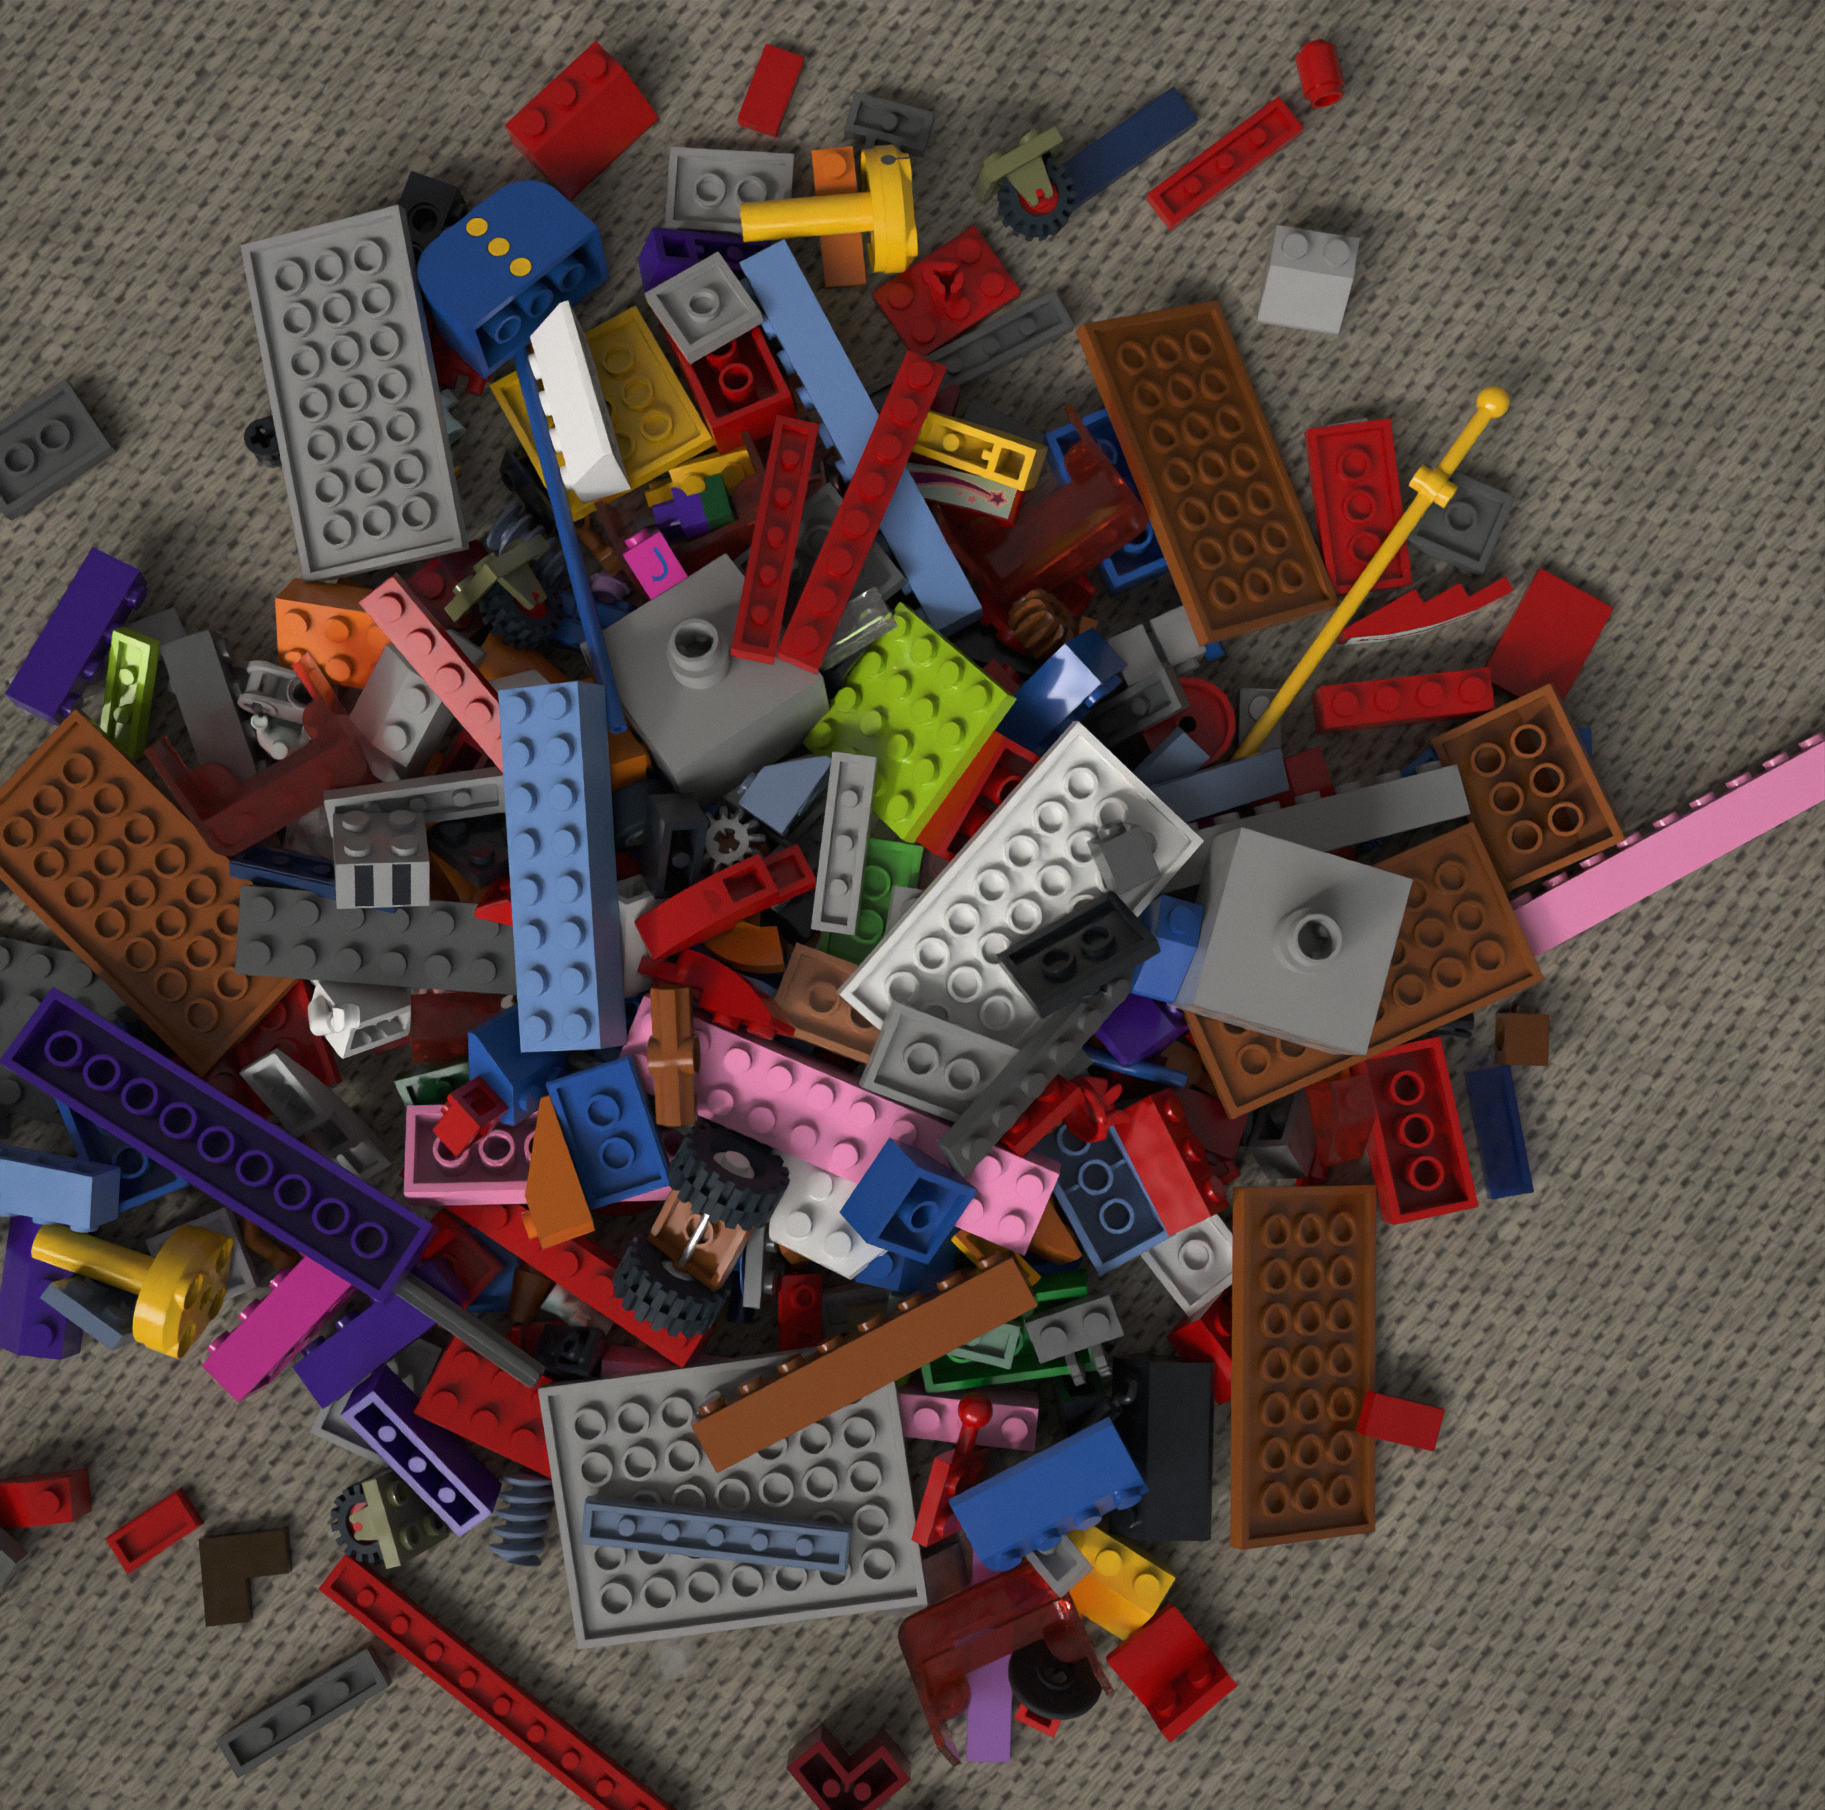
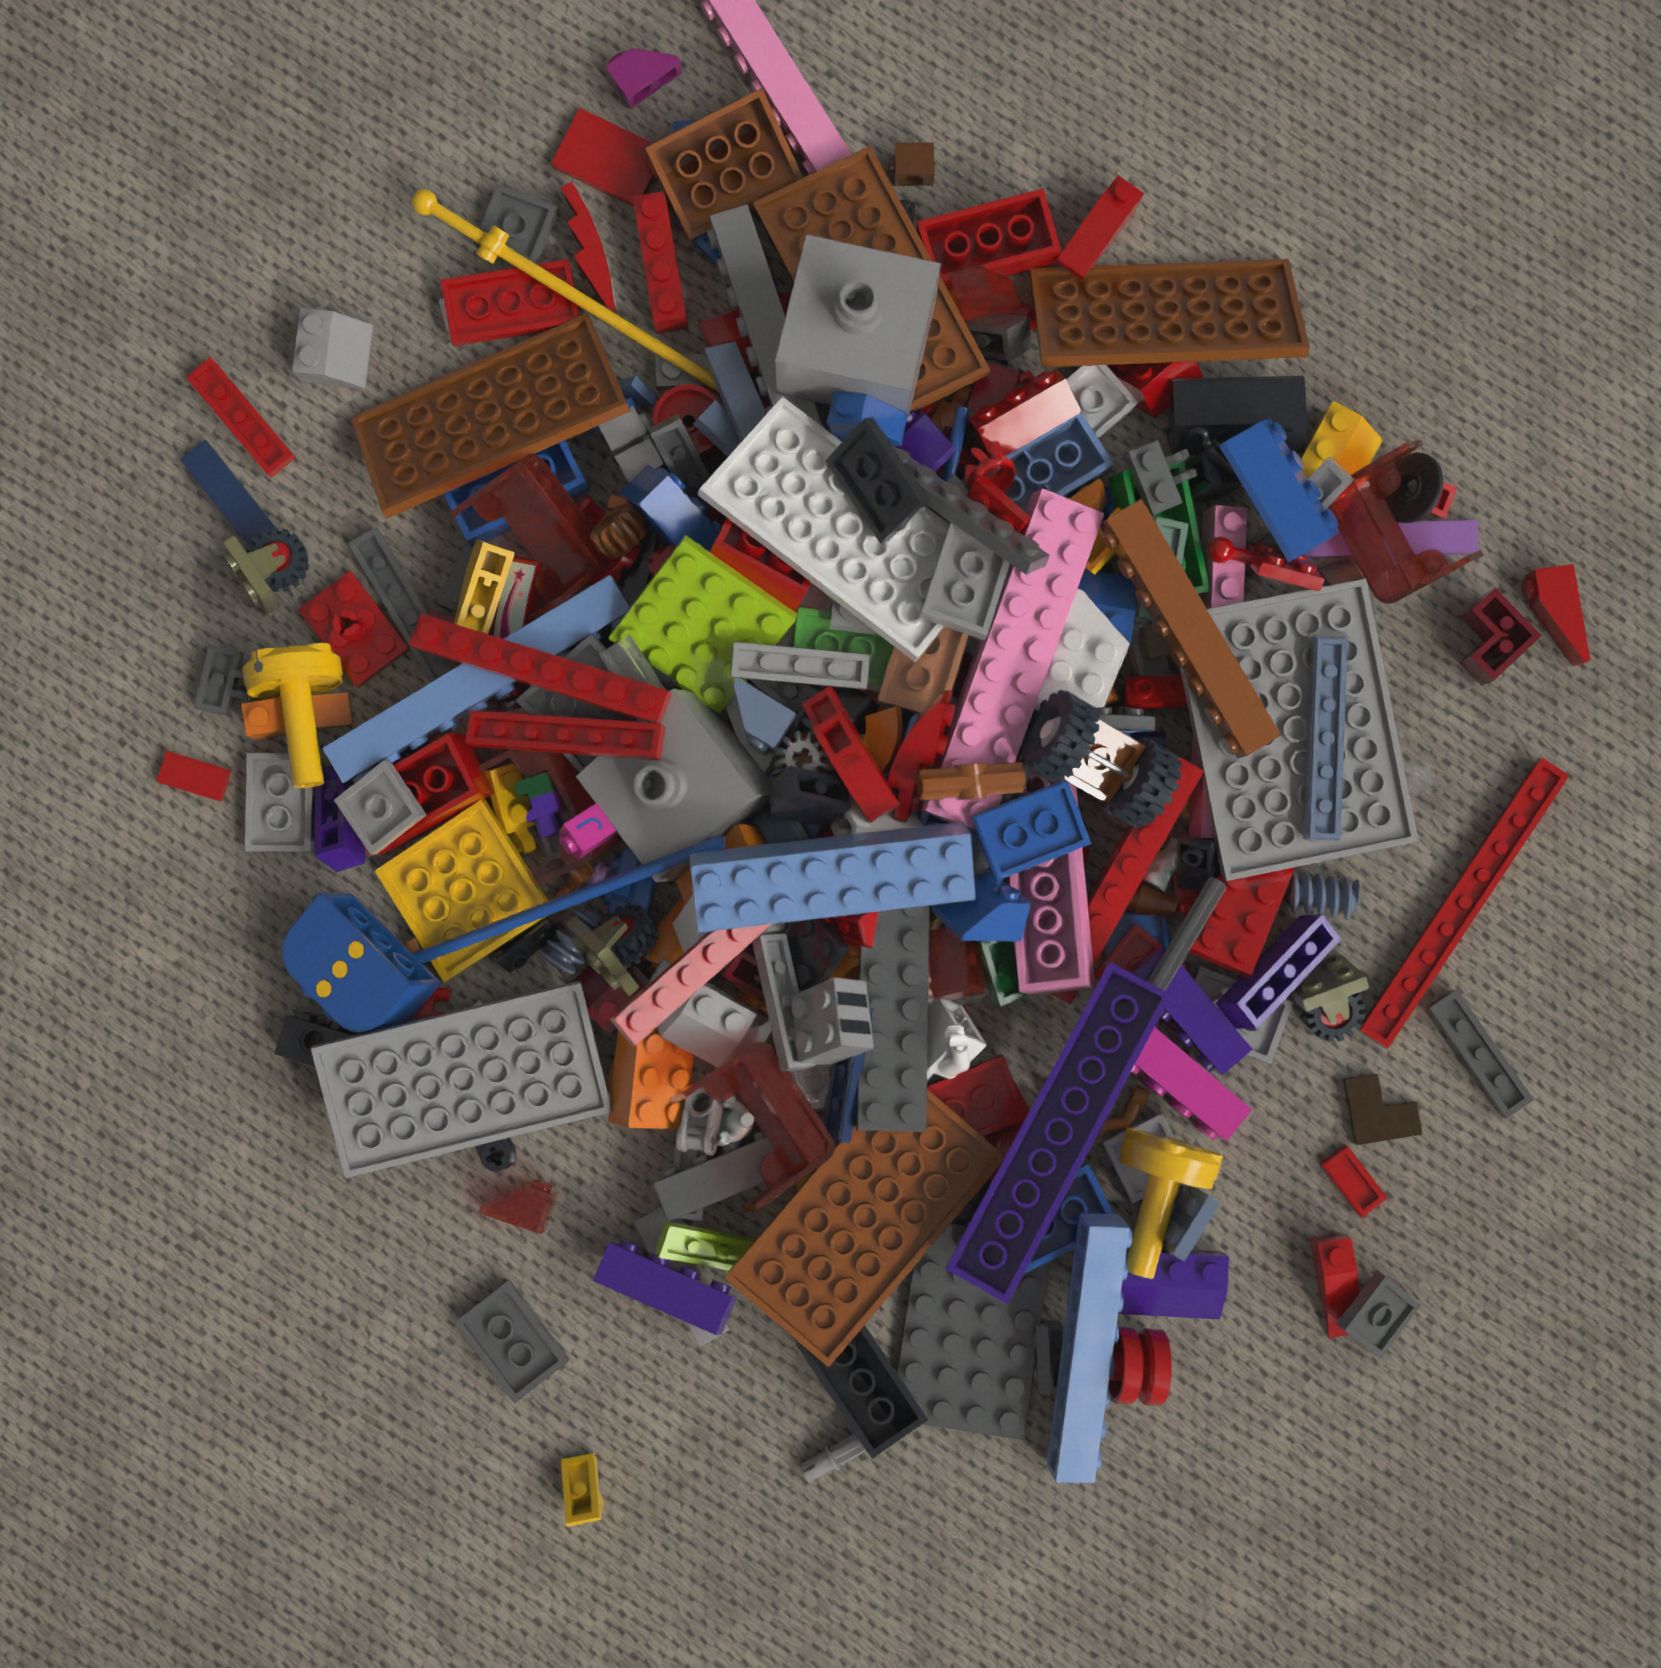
camera: 90 degrees left, 0 degrees up
(201, 470) = (524, 1206): none -> clear red slope
(316, 1112) = (1027, 1069): light grey slope -> none
(469, 1115) = (1025, 936): red brick -> none
(553, 1189) = (1078, 867): orange slope -> none
(577, 407) = (462, 903): white slope -> none
(581, 121) = (227, 922): red slope -> none
(907, 1202) = (1070, 599): blue slope -> none
(1123, 856) = (800, 451): dark grey brick -> none
(1171, 1671) = (1402, 401): red bracket -> none
(1235, 661) = (636, 389): none -> medium blue tile
(1320, 73) = (165, 346): red brick -> none
(1400, 1420) = (1205, 242): red tile -> none
(1425, 1280) = (1100, 227): none -> red slope
(1498, 1132) = (984, 179): clear blue plate -> none
(1656, 689) = (641, 73): none -> magenta slope

